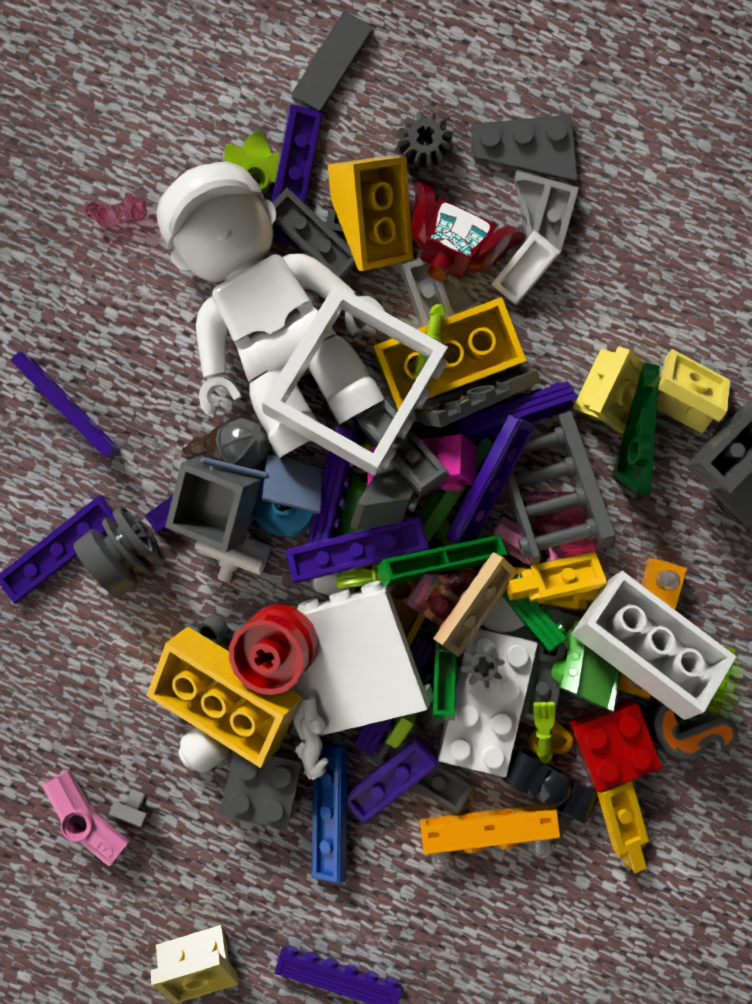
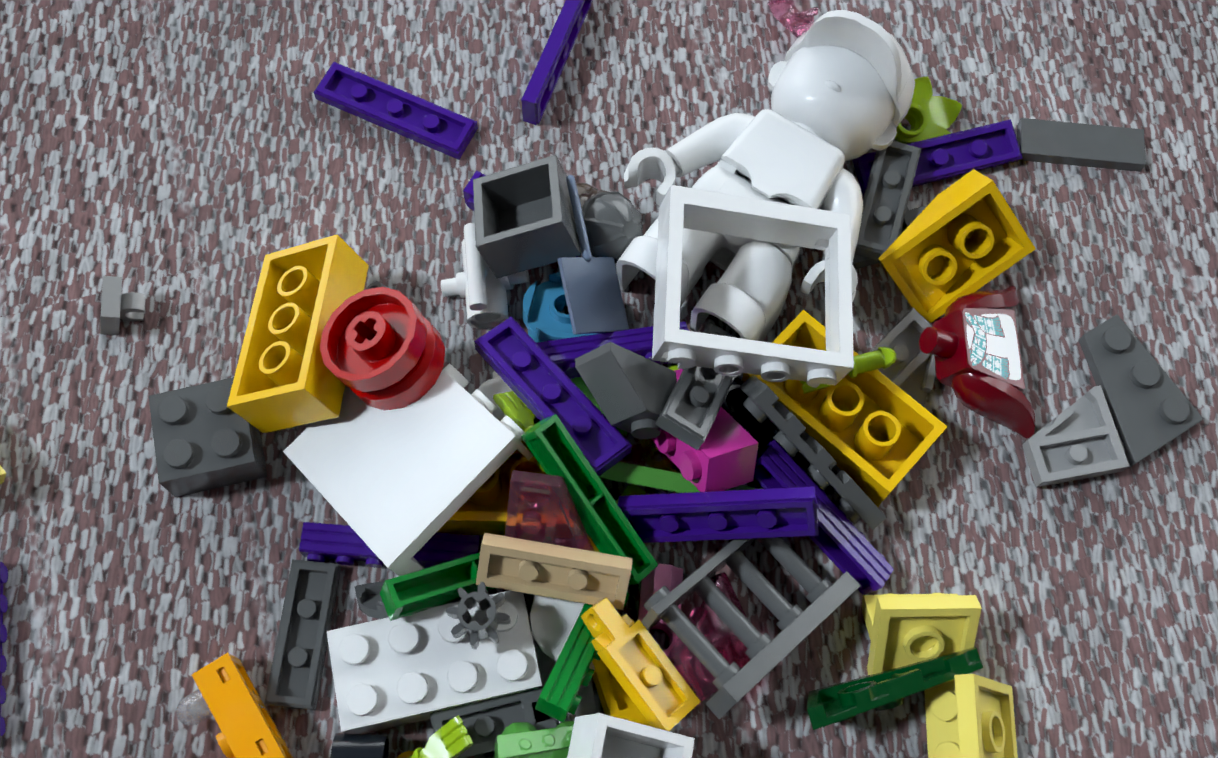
camera: 65 degrees right, 20 degrees down
(69, 801) = (75, 280): bright pink piece -> none
(113, 557) = (421, 157): dark grey wheel -> none
(201, 751) = (219, 348): white head -> none
(310, 749) = (279, 463): white animal -> none
(330, 816) = (202, 536): blue tile -> none
(391, 780) = (277, 591): dark purple tile -> none
(400, 729) = (354, 569): lime tile -> none
(424, 128) = (1064, 271): dark grey gear -> none
(526, 267) = (997, 451): white tile -> none

